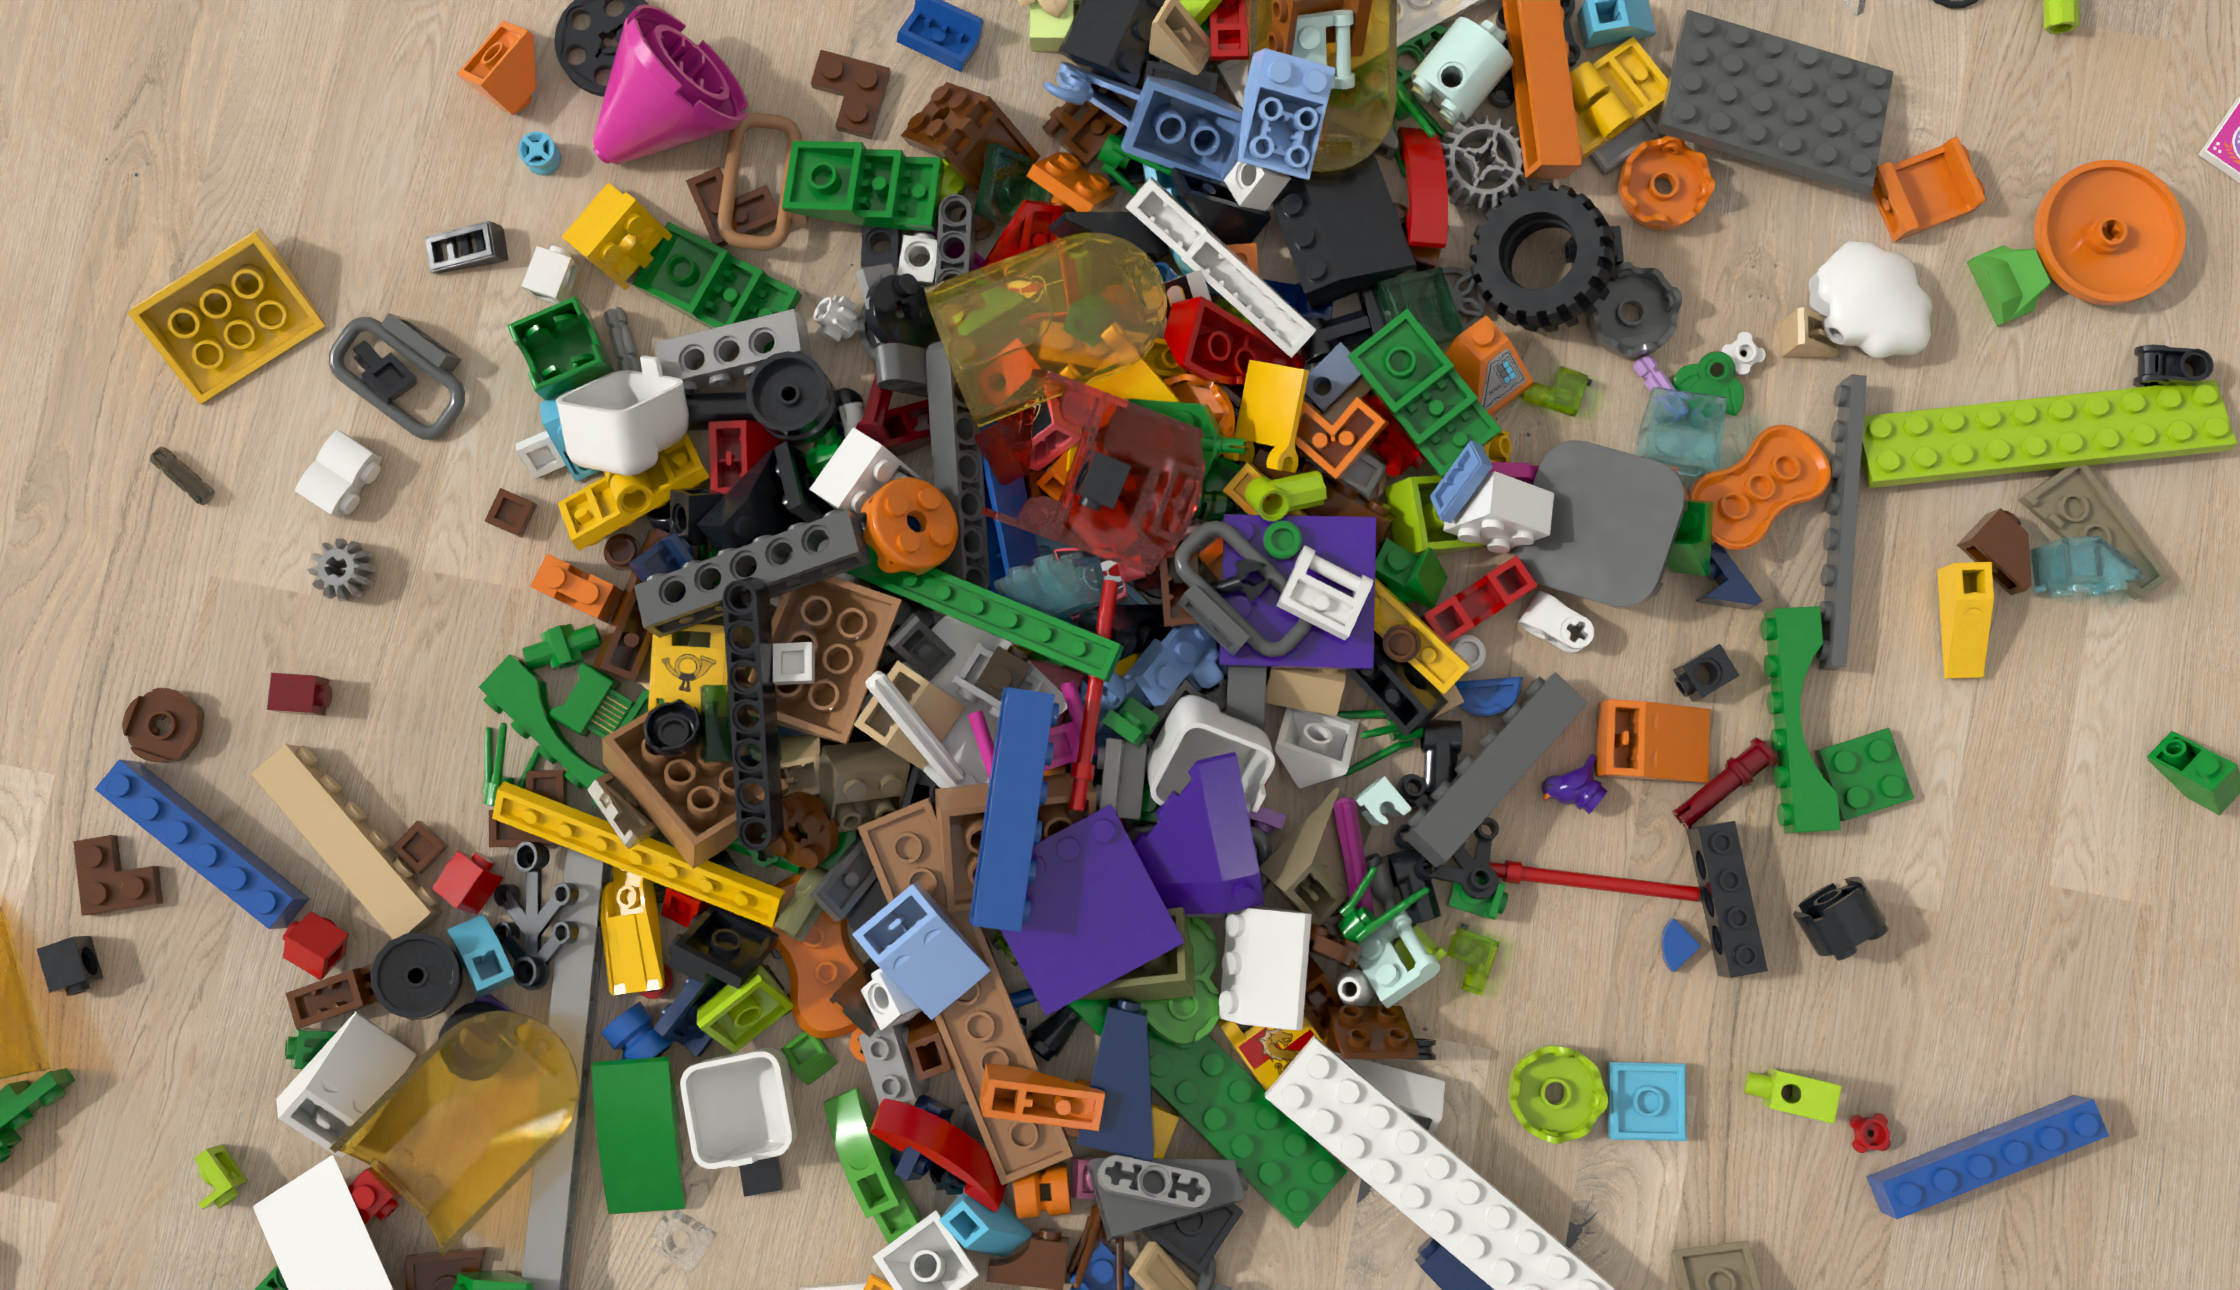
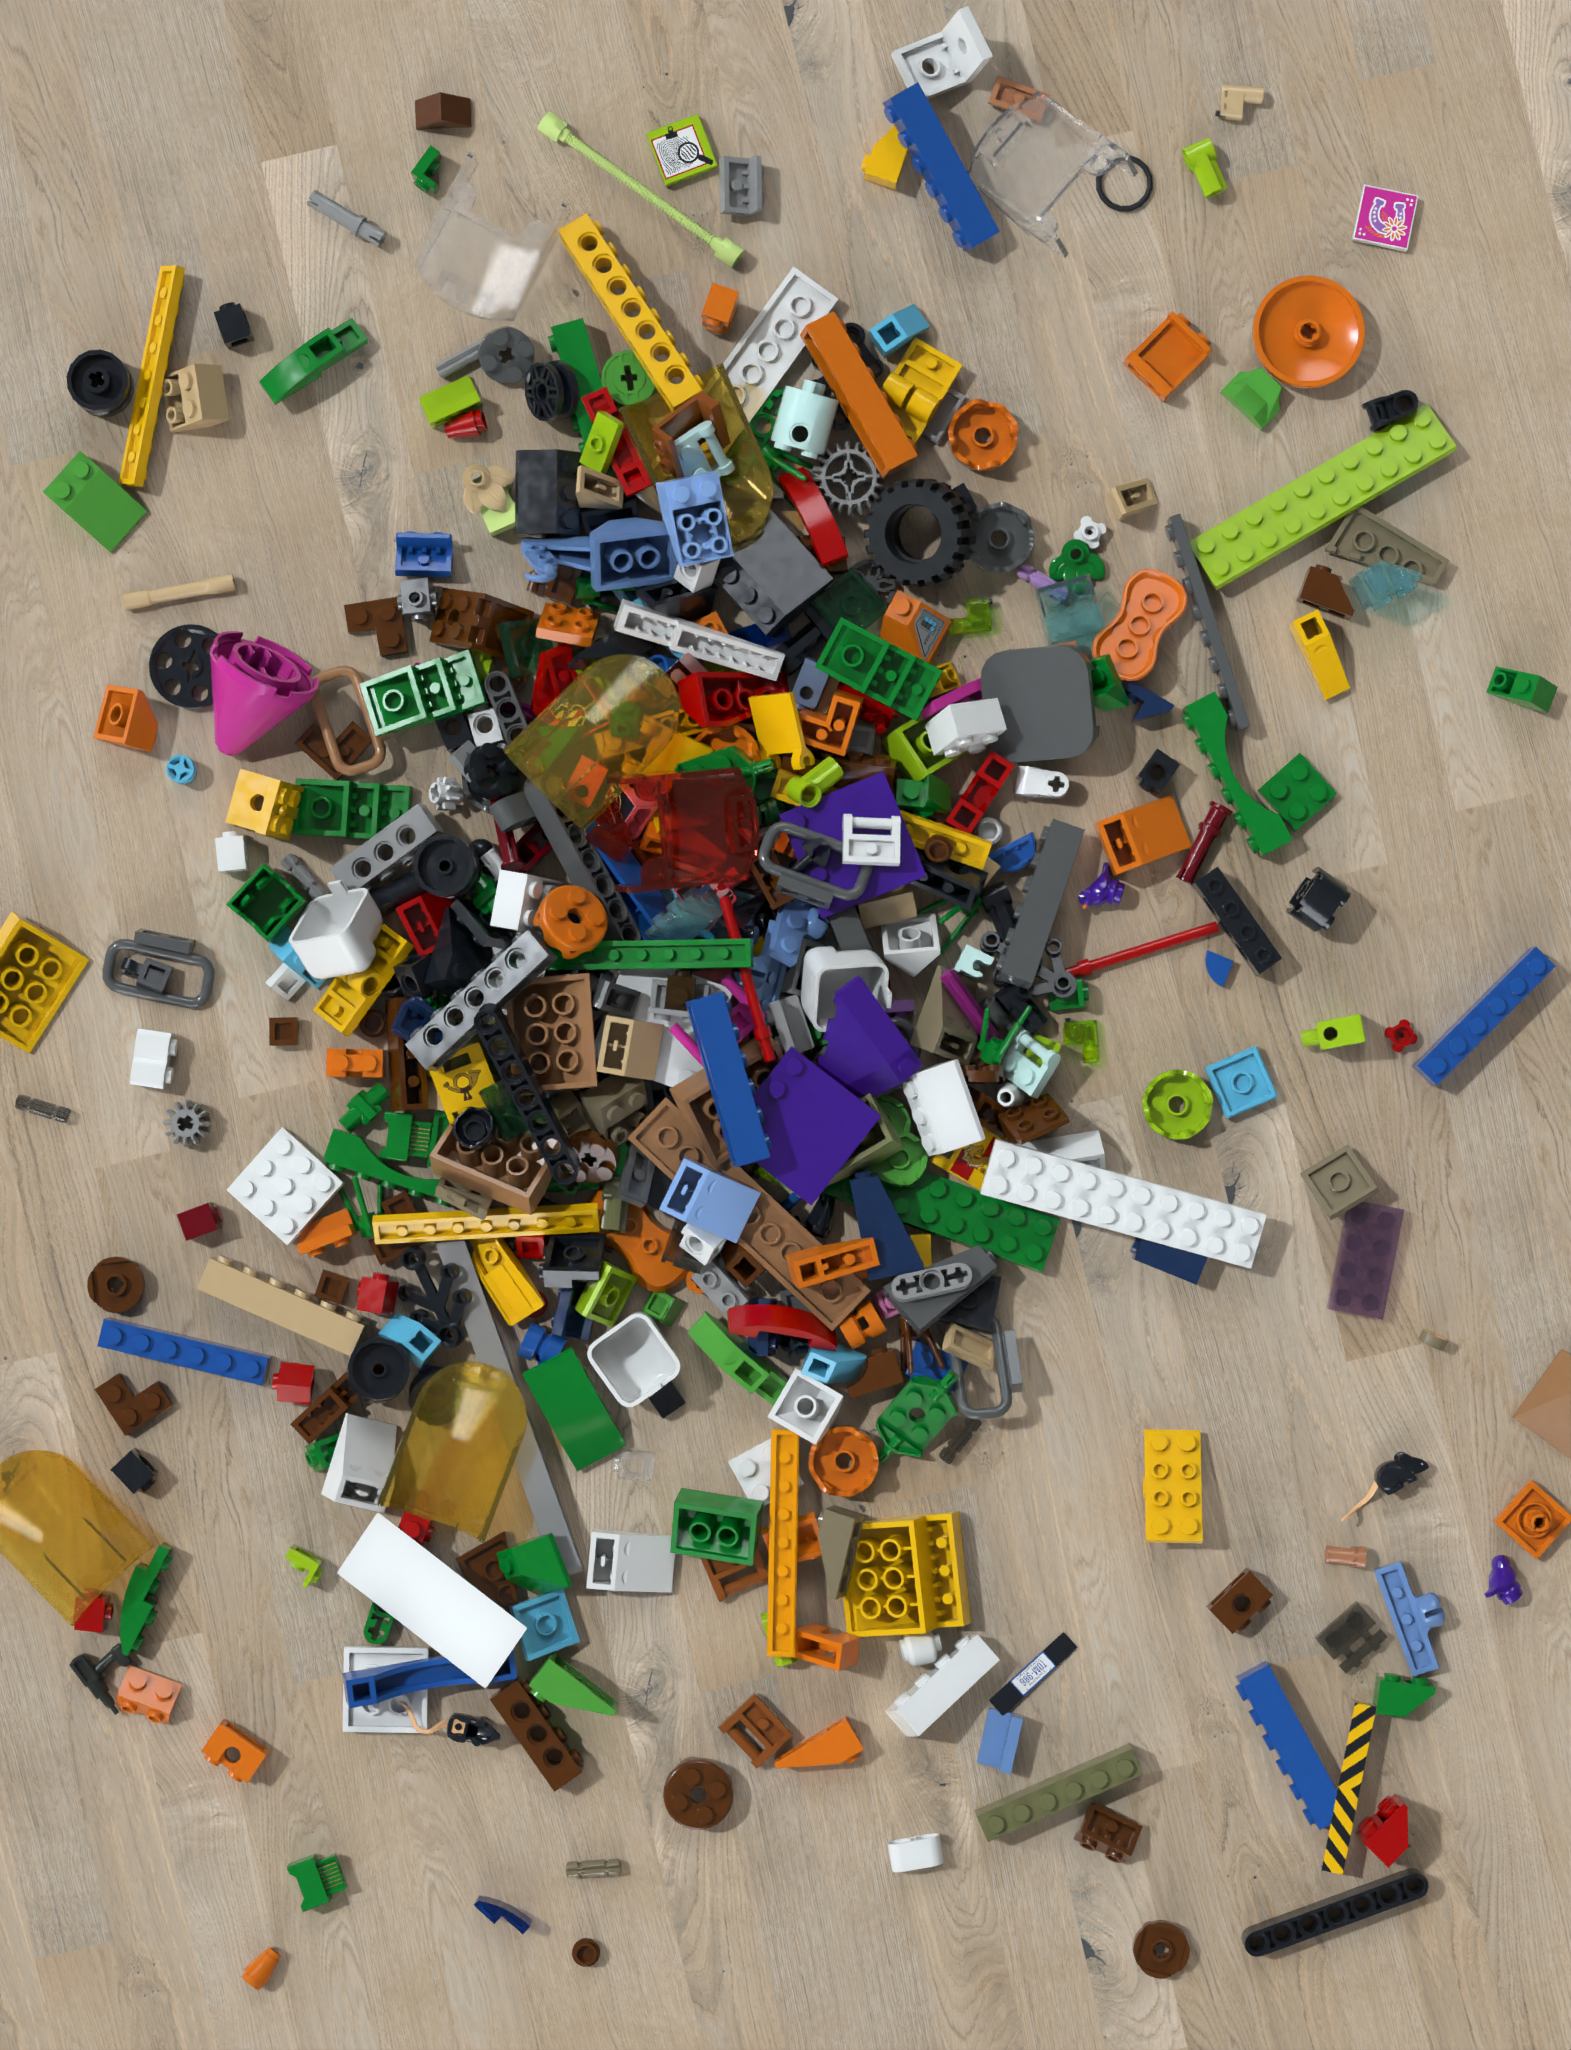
camera: 25 degrees left, 5 degrees up
(422, 699) = (285, 1186): none -> white plate
(441, 775) = (329, 1230): none -> orange bracket
(489, 244) = (180, 847): black slope -> none
(793, 663) = (538, 1048): white plate -> none
(909, 77) = (411, 592): none -> flat silver brick
(914, 728) = (639, 1055): white axle -> none
(1100, 480) = (685, 832): black brick -> none
(1132, 722) = (780, 984): green bracket -> none
(1282, 540) = (826, 816): green tile -> none
(1425, 1049) = (1074, 1116): black bush -> none
(1461, 481) = (930, 719): medium blue plate -> none
(1776, 102) = (1035, 341): dark grey plate -> none
(1872, 301) = (1163, 456): white piece -> none

